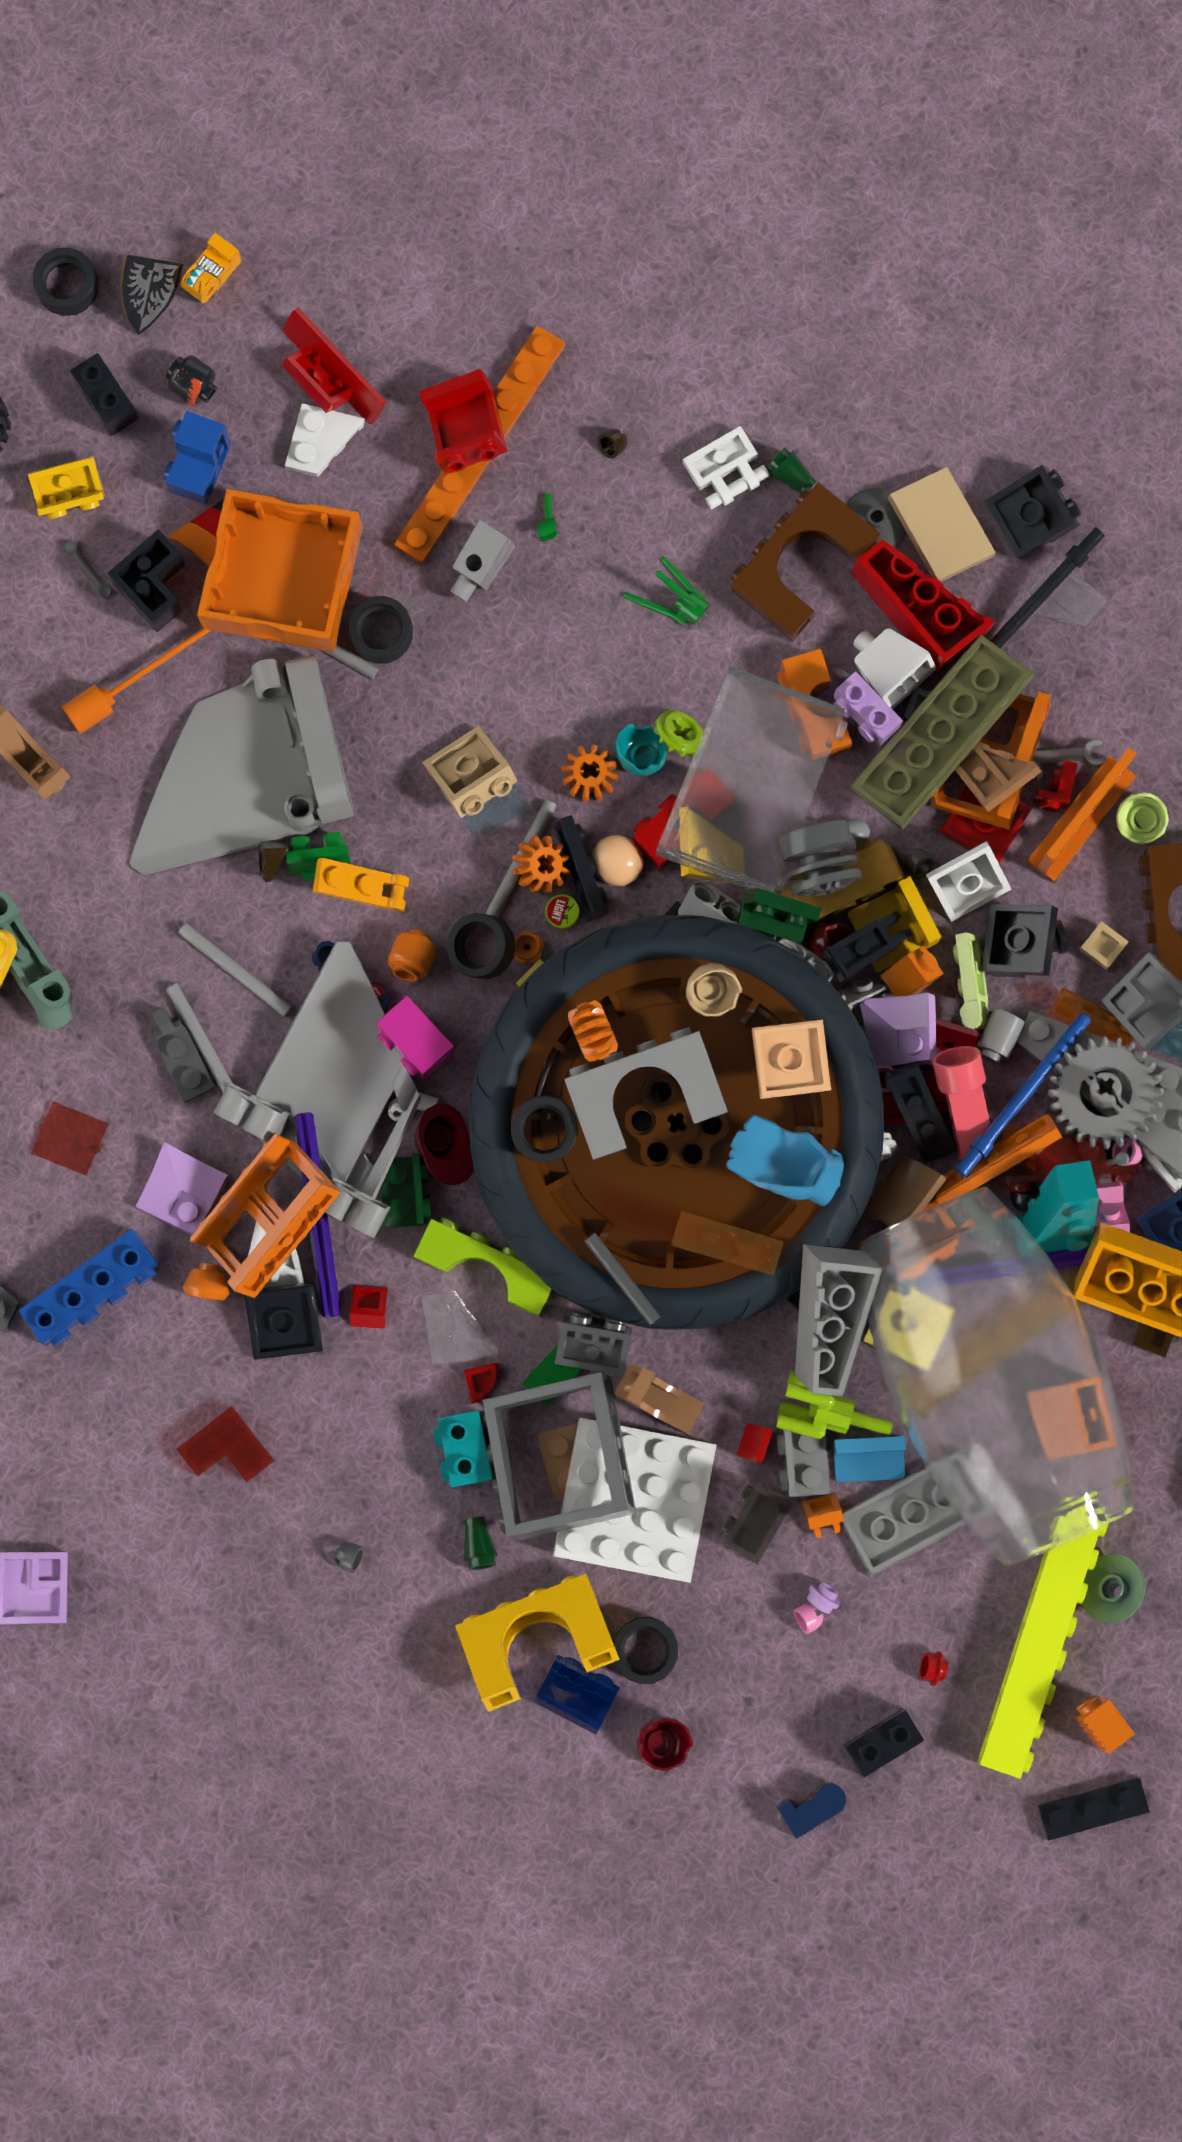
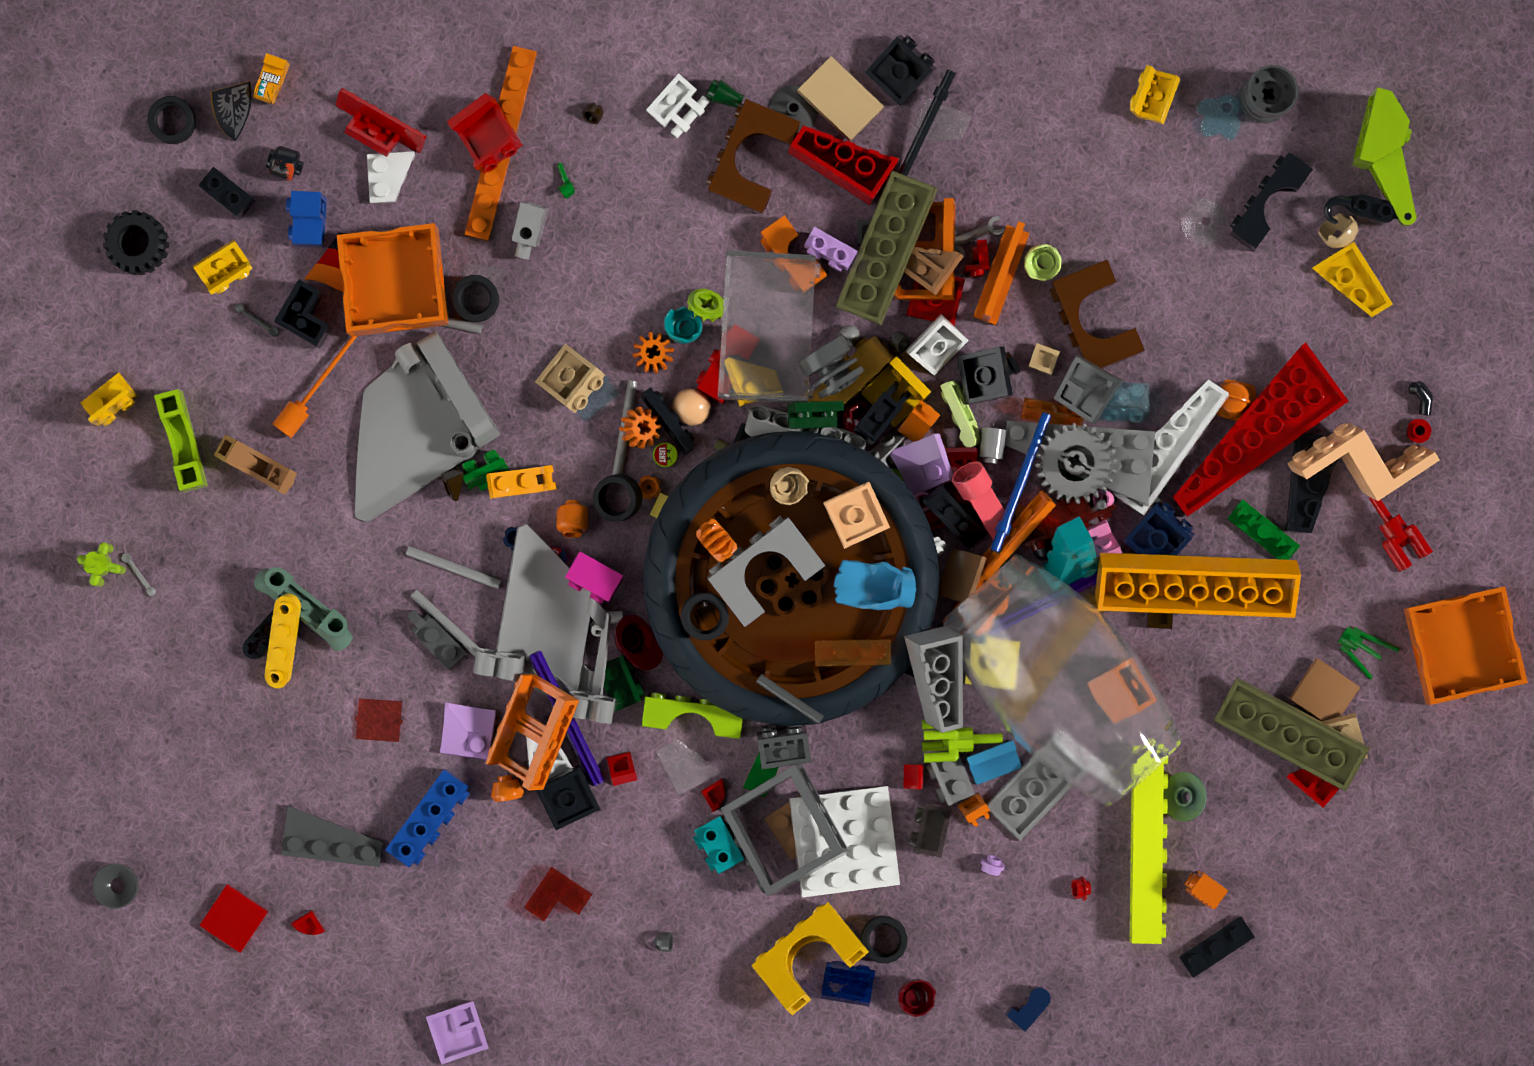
camera: 20 degrees left, 5 degrees up
(478, 1545) = (749, 906): dark green cone -> none
(659, 1399) = (839, 769): medium nougat arch -> none
(690, 604) = (683, 211): green plant -> none
(807, 1618) = (985, 882): bright pink hinge -> none
(883, 1742) = (1063, 949): black brick -> none
(892, 664) = (837, 210): white torso -> none

